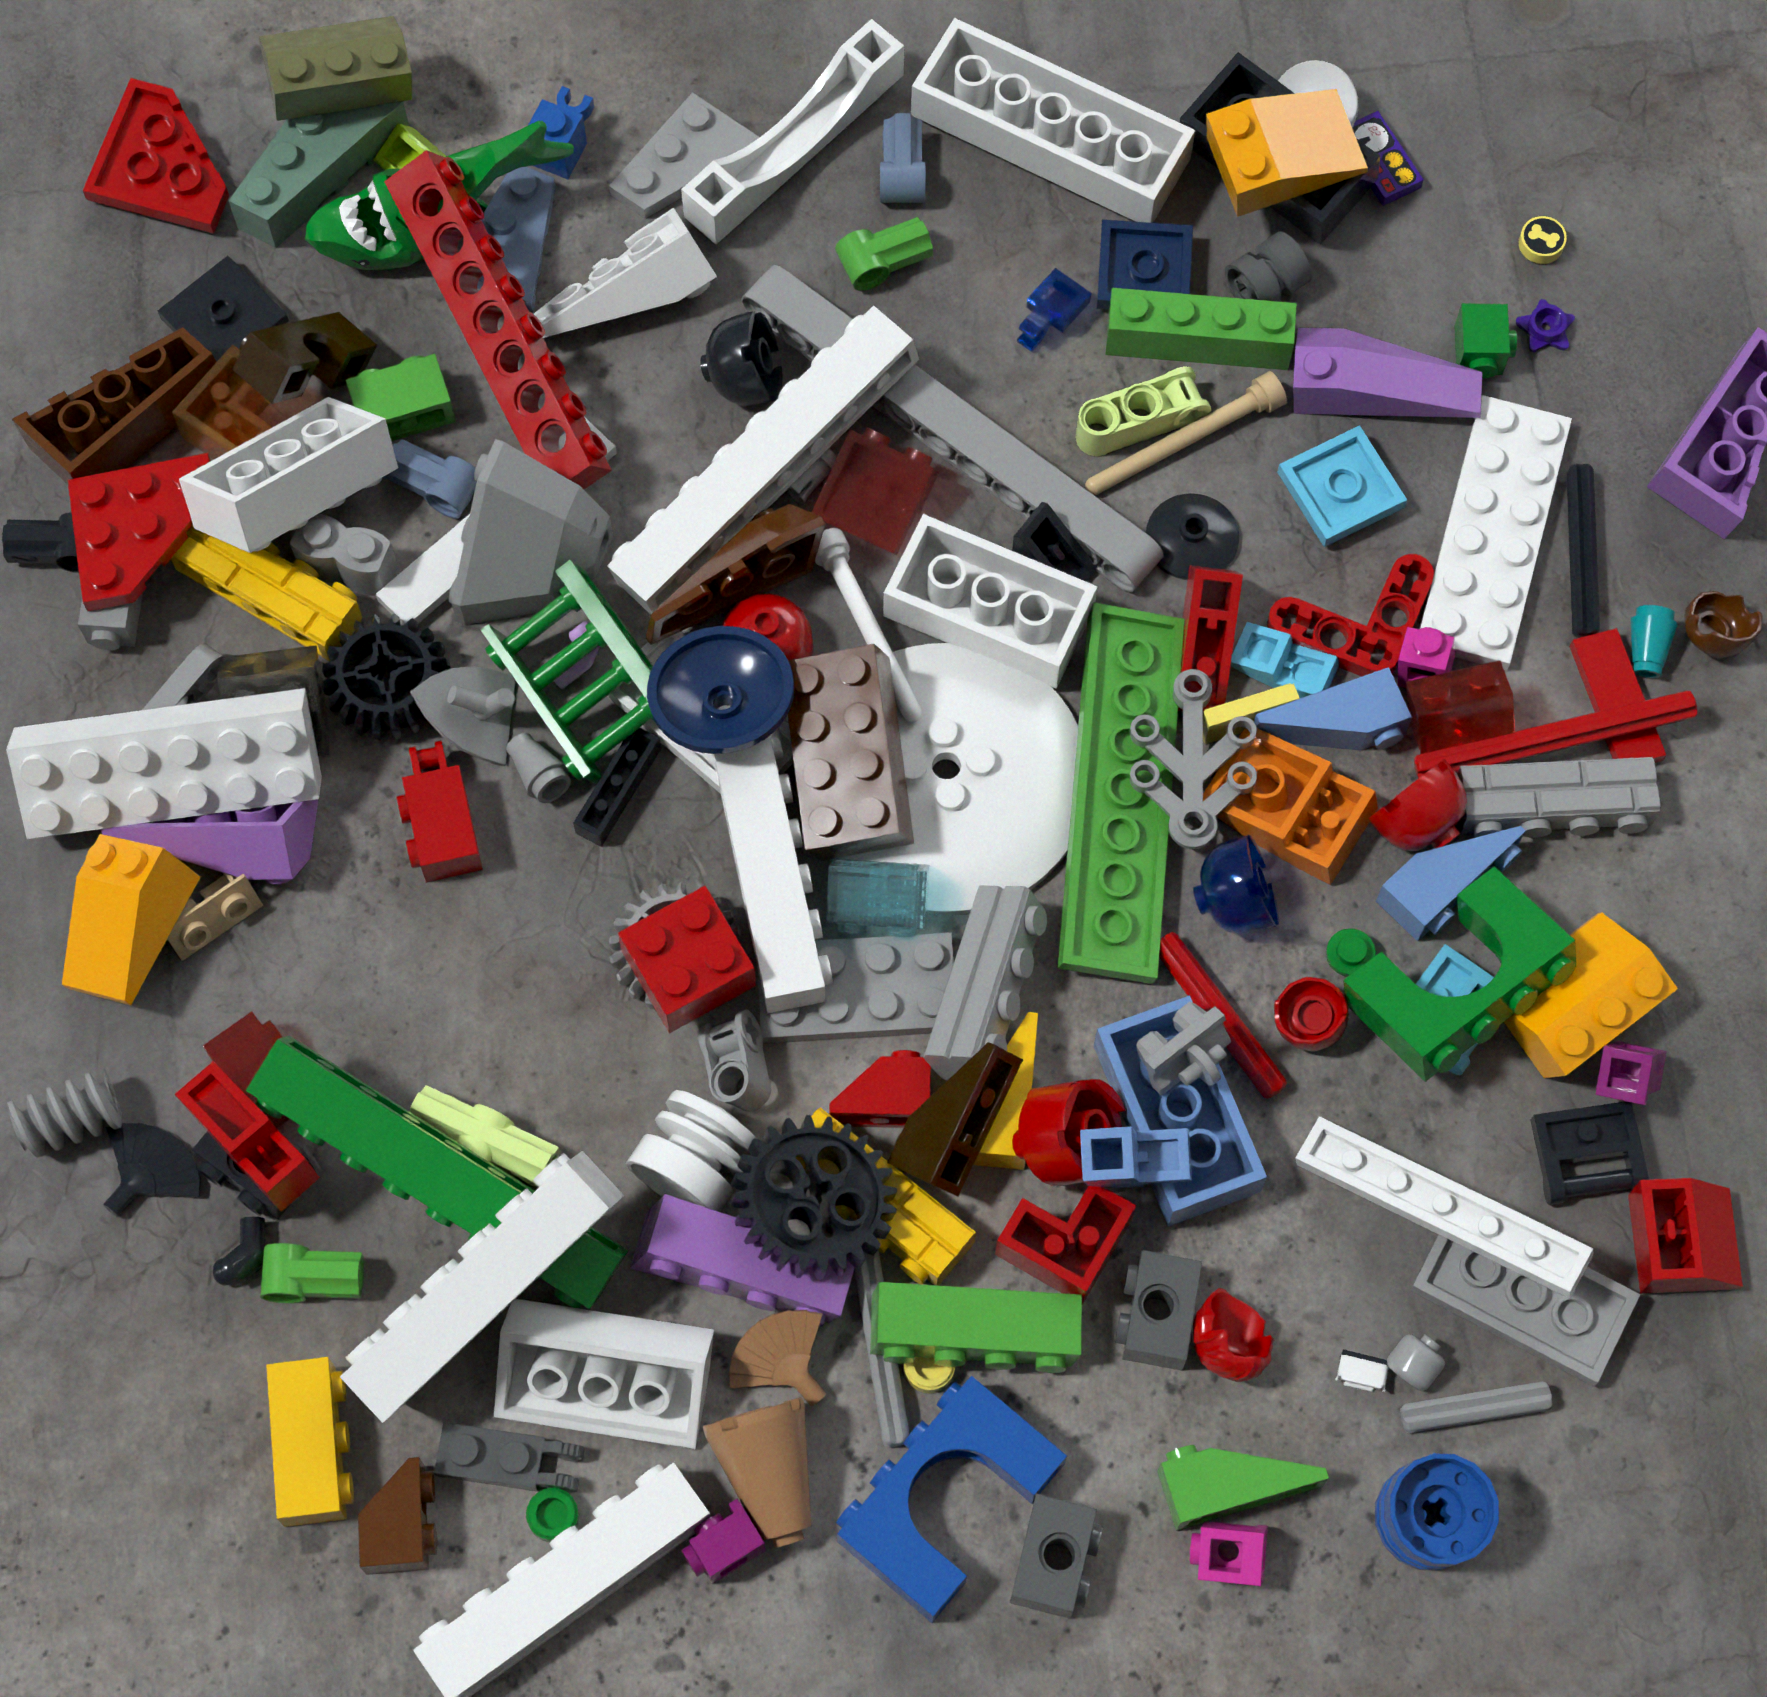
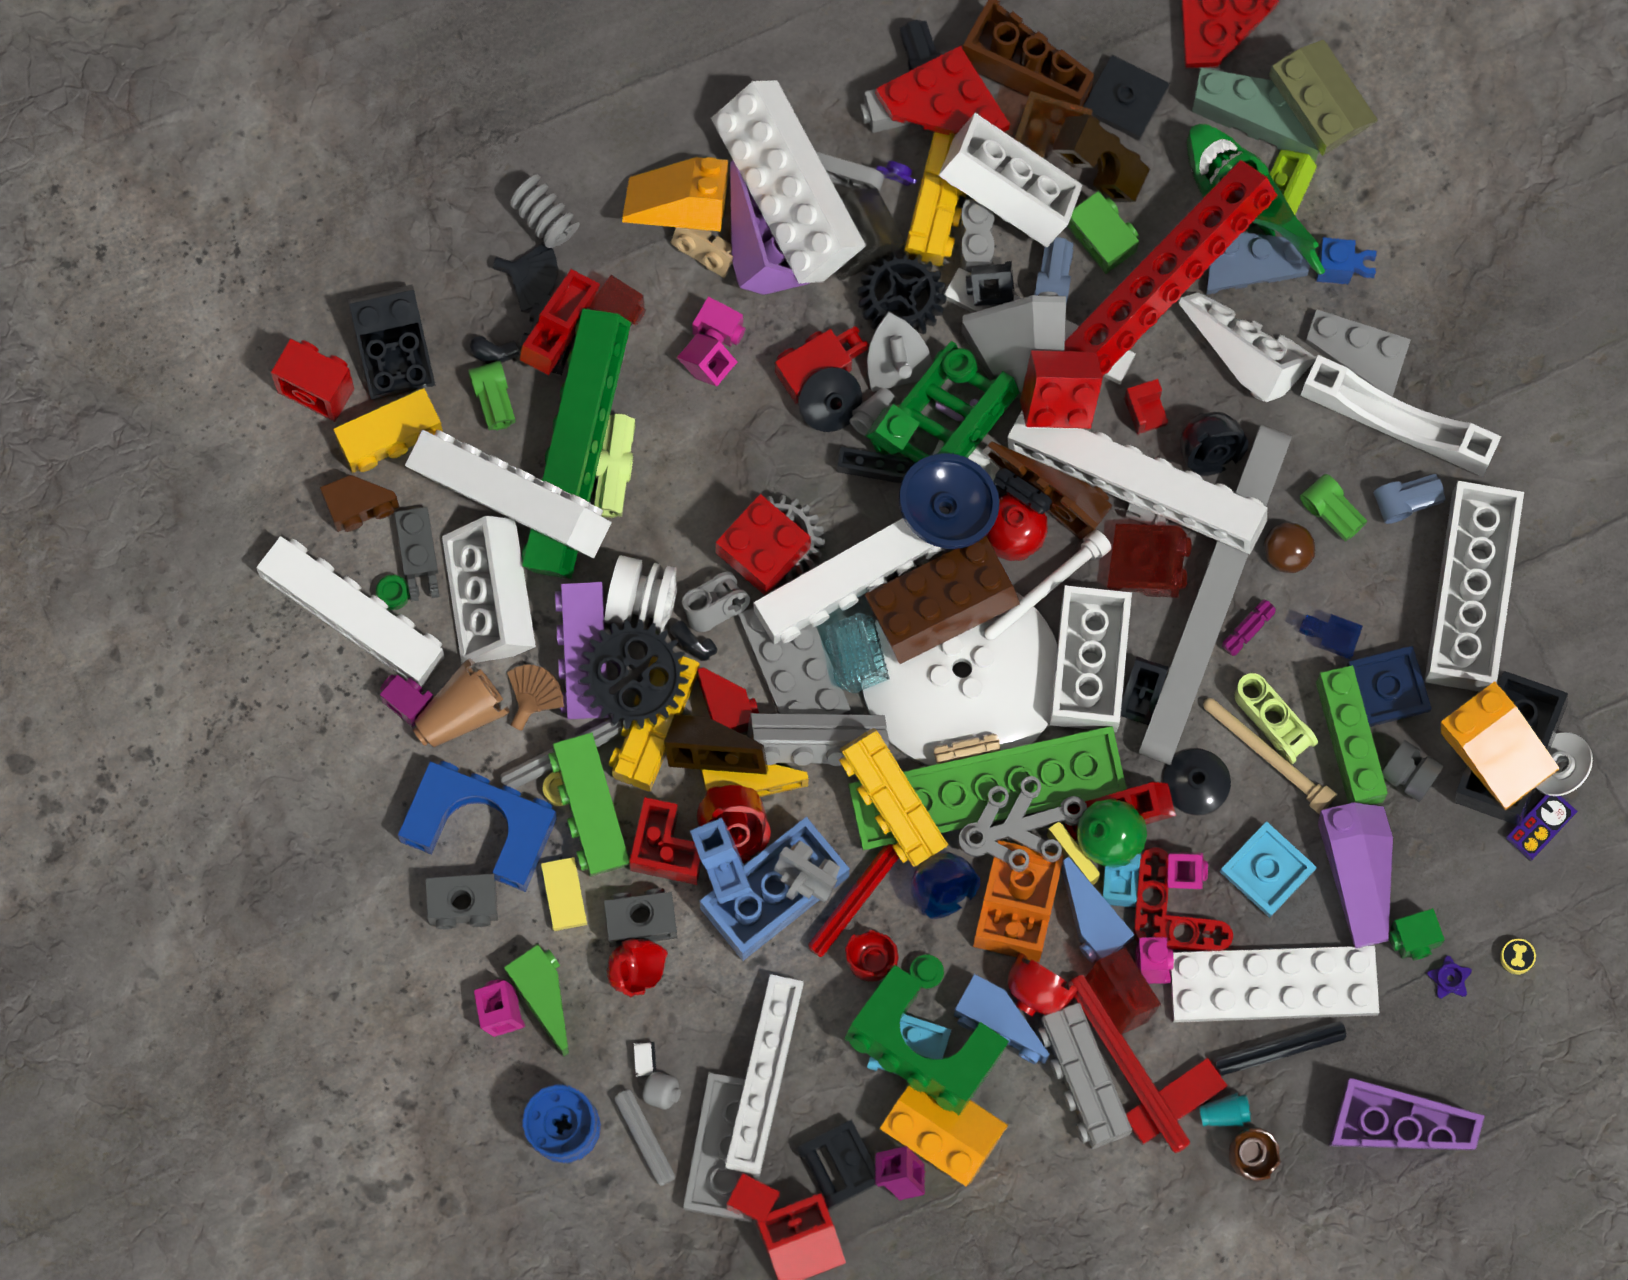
camera: 70 degrees right, 5 degrees up
(170, 1394) = (391, 342): none -> black slope
(187, 1524) = (313, 379): none -> red brick
(210, 624) = (897, 172): none -> dark purple plate
(330, 927) = (719, 322): none -> dark pink brick
(379, 957) = (707, 359): none -> dark pink brick
(435, 548) = (998, 293): none -> black brick
(499, 815) = (820, 390): none -> black dish
(521, 628) = (960, 365): none -> green tile
(583, 735) = (893, 428): none -> green brick
(613, 502) = (1061, 389): none -> red brick
(661, 430) = (1145, 406): none -> red panel
(733, 601) = (1022, 491): none -> black axle
(795, 1106) = (689, 642): none -> black arm
(922, 316) = (1289, 547): none -> reddish brown hair
(1007, 403) = (1248, 627): none -> magenta axle
(1061, 796) = (966, 748): none -> tan axle
(1087, 1408) = (564, 894): none -> light yellow tile
(1107, 905) = (893, 797): none -> yellow brick
(1242, 648) = (1111, 833): none -> green cylinder
(1319, 576) = (1187, 870): none -> dark pink brick
(1621, 1278) = (752, 1198): none -> red panel

